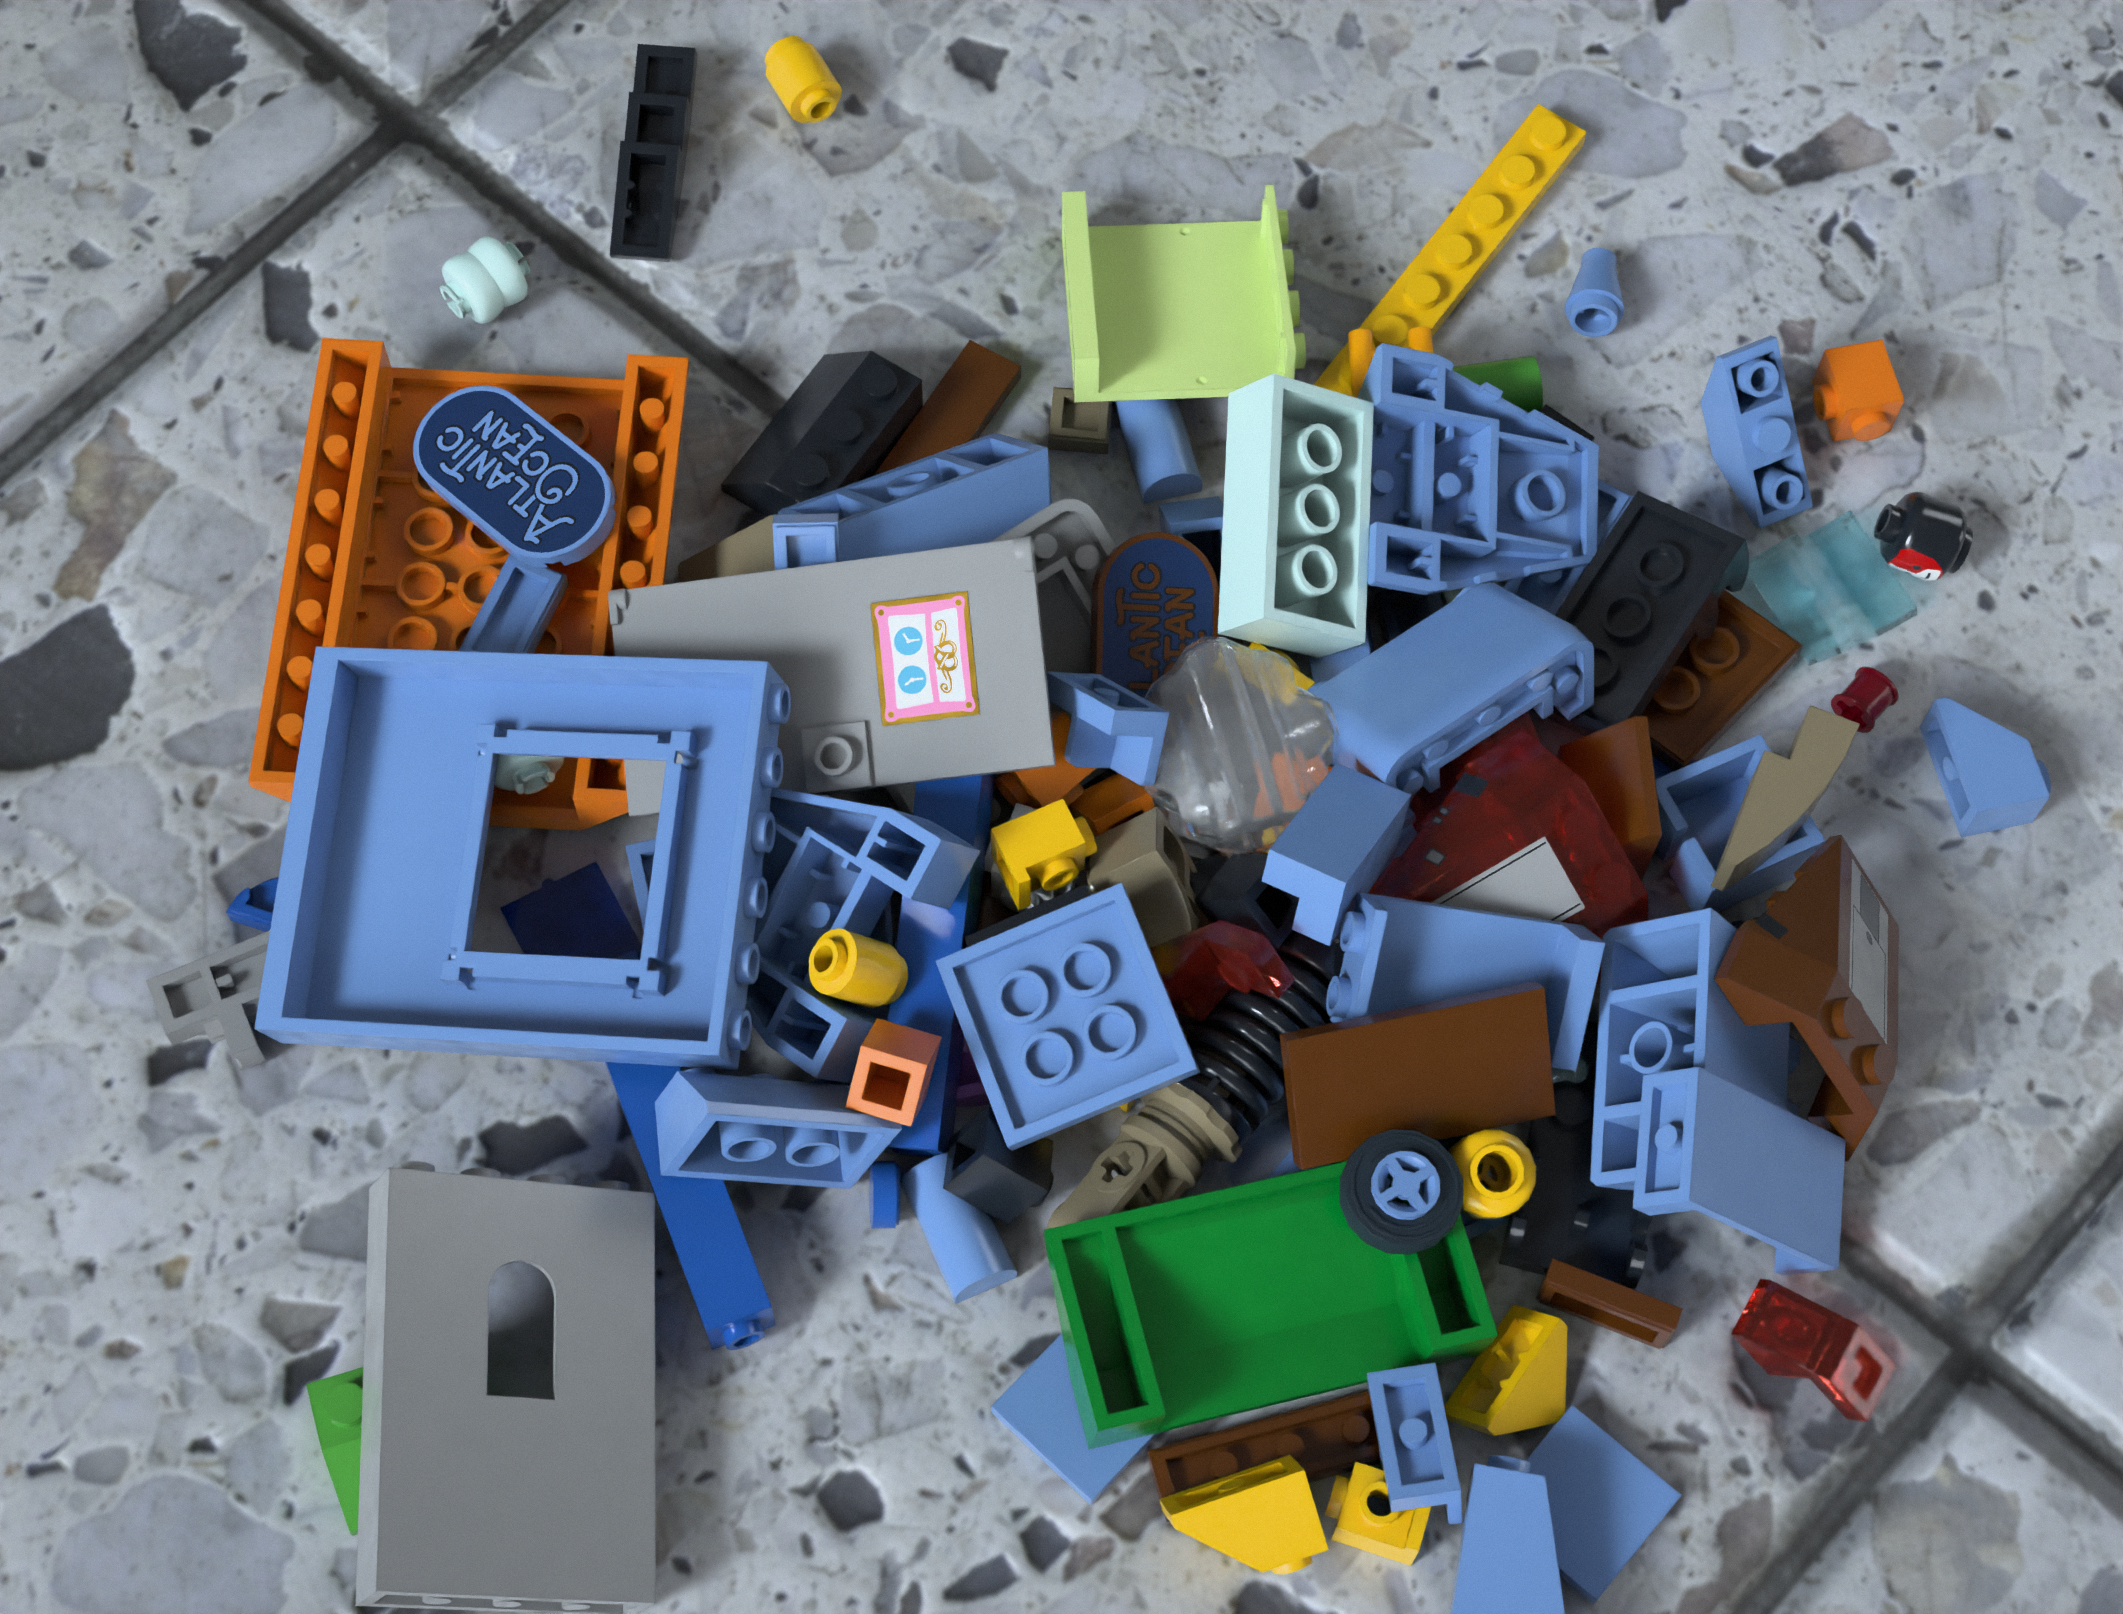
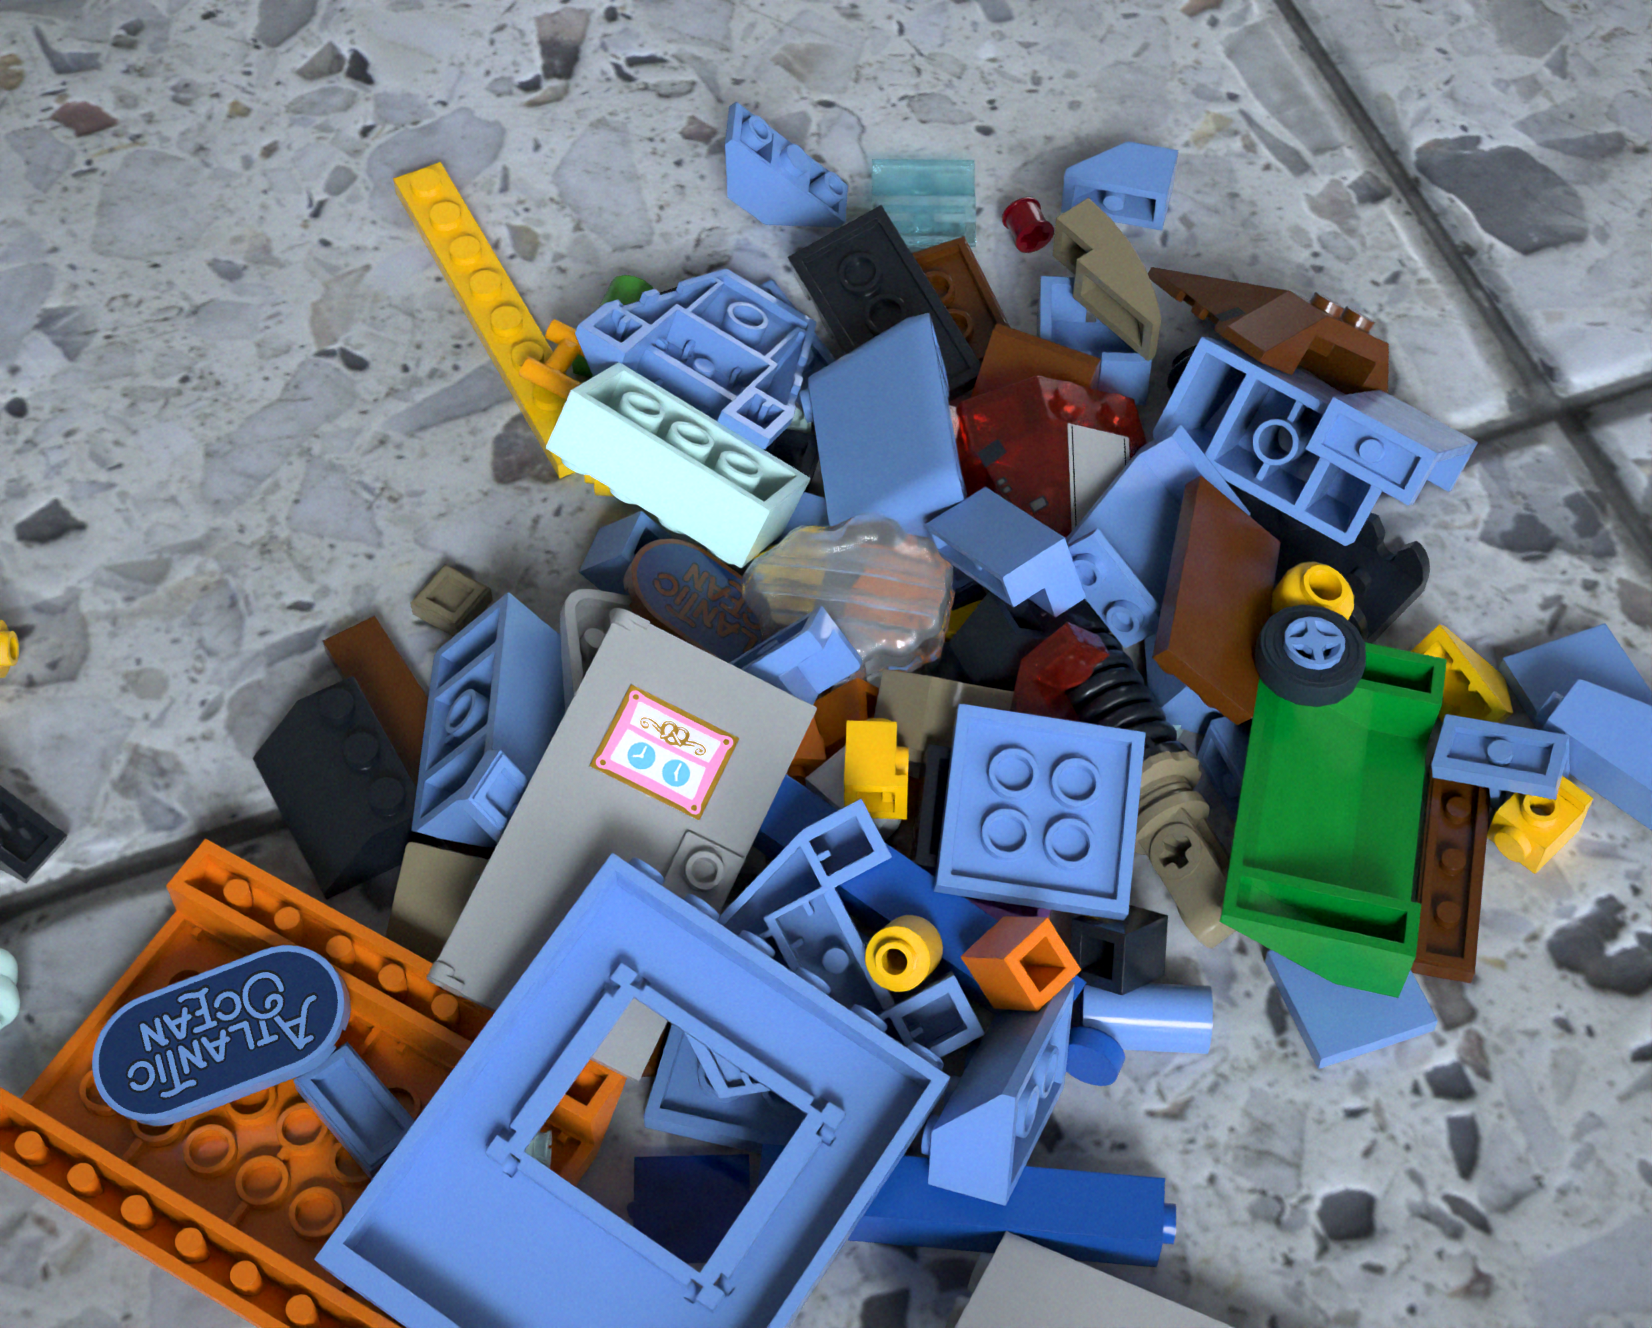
camera: 60 degrees left, 10 degrees down
(1158, 448) = (508, 554): medium blue brick -> none
(1178, 305) = (406, 473): yellowish green panel -> none
(1254, 1516) = (1508, 899): yellow slope -> none
(1596, 296) = (588, 221): medium blue cone -> none
(1608, 1304) = (1434, 596): reddish brown tile -> none
(1811, 1342) = (1523, 488): clear red slope -> none
(1857, 391) = (783, 104): orange brick -> none
(1923, 536) = (922, 127): black head -> none

